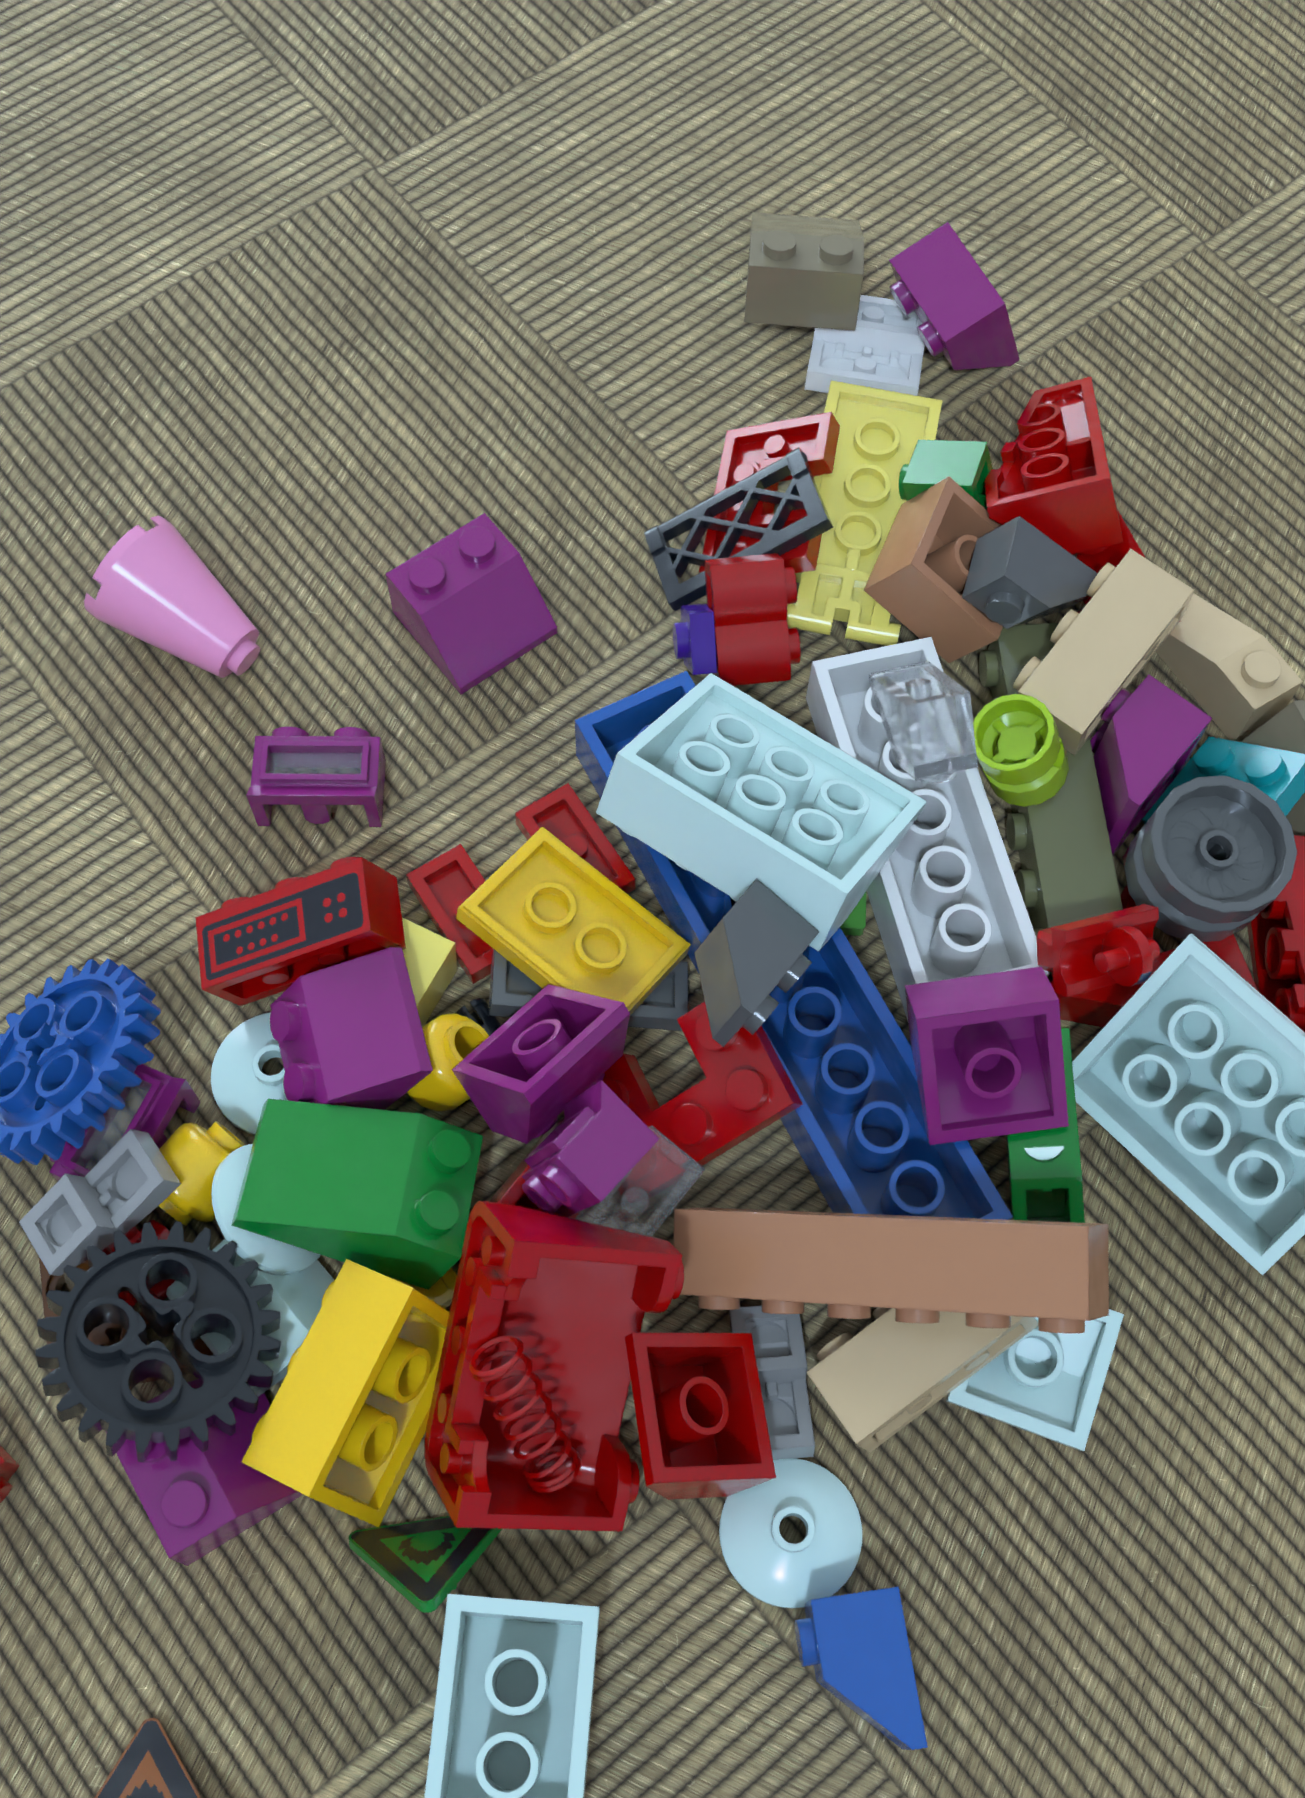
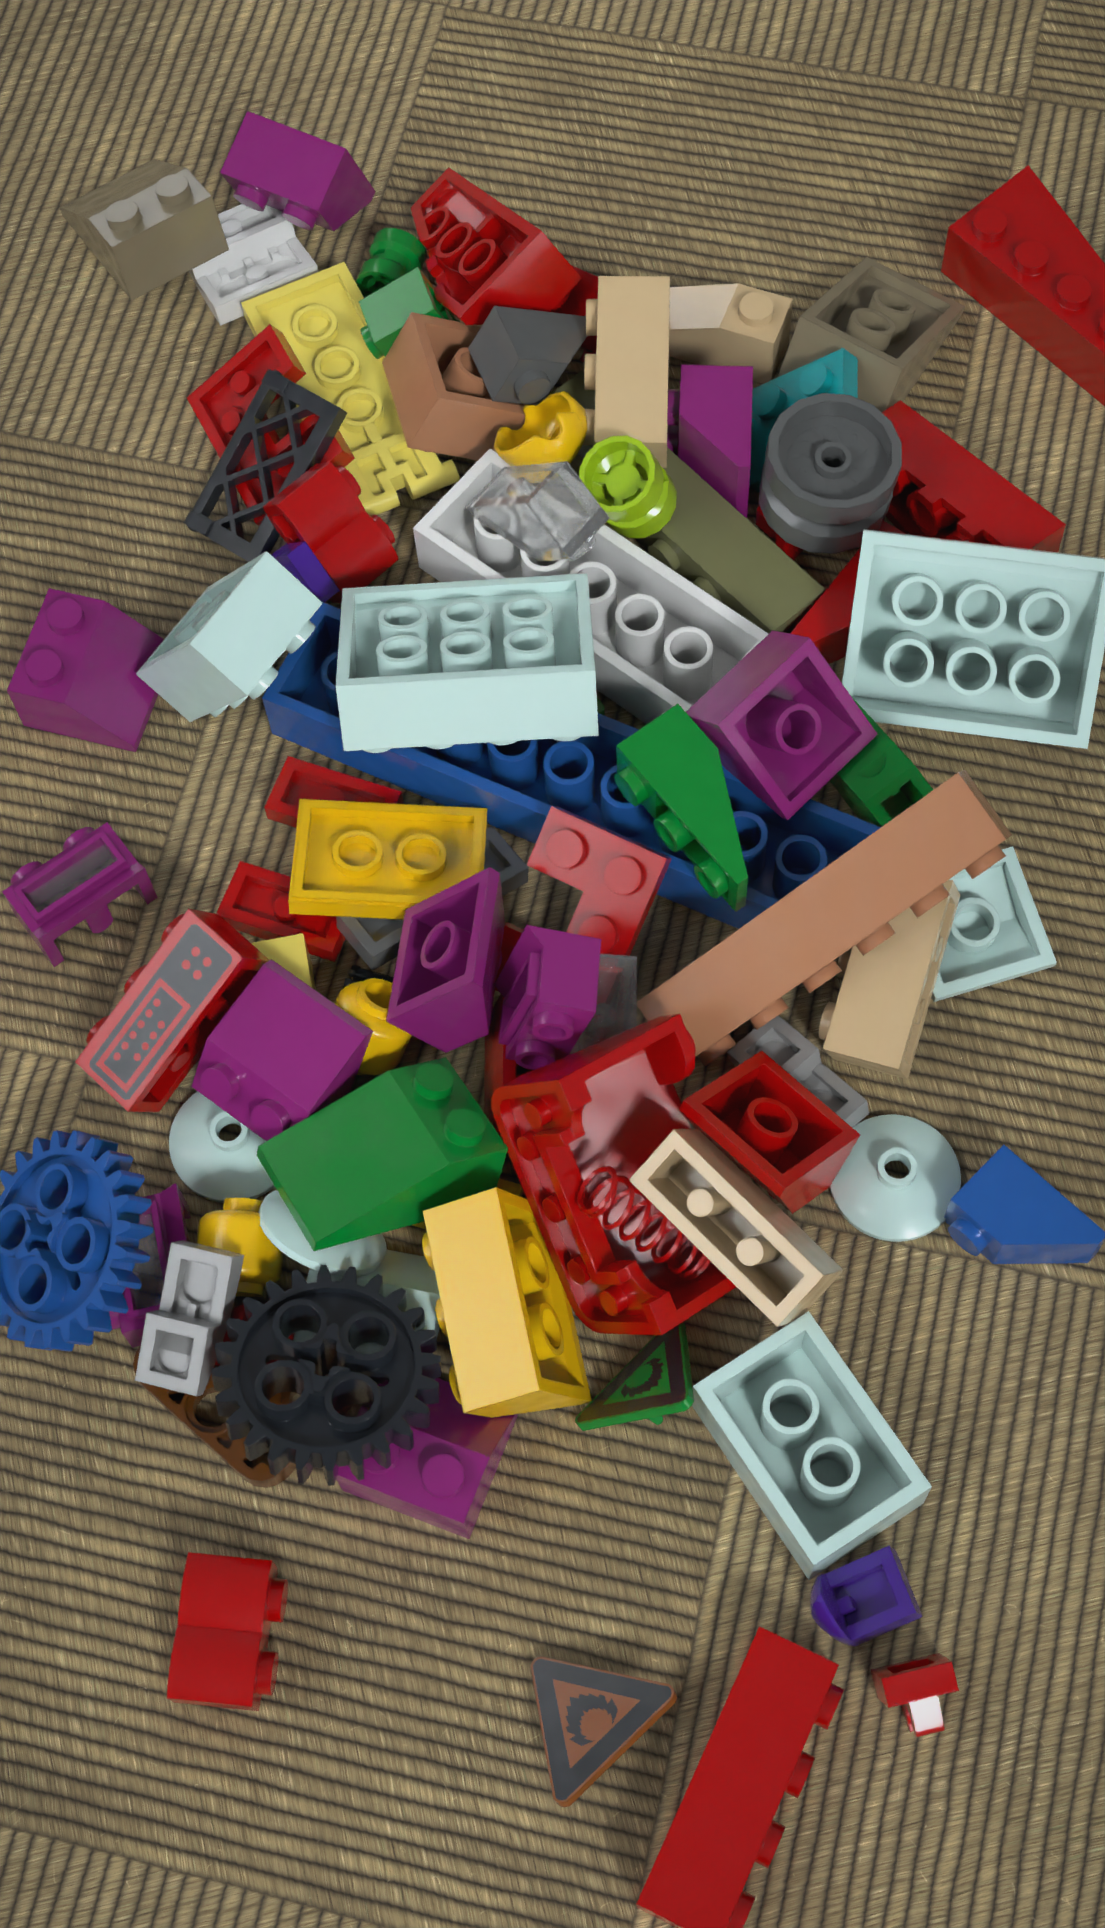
camera: 30 degrees left, 0 degrees up
(588, 653) = (232, 639): none -> light aqua brick
(592, 1483) = (736, 1225): none -> tan brick
(749, 955) = (554, 775): dark grey slope -> none
(858, 1044) = (683, 786): none -> green slope
(986, 661) = (550, 433): none -> yellow hair
(988, 420) = (392, 256): none -> green wheel
(1101, 950) = (803, 590): red hips -> none

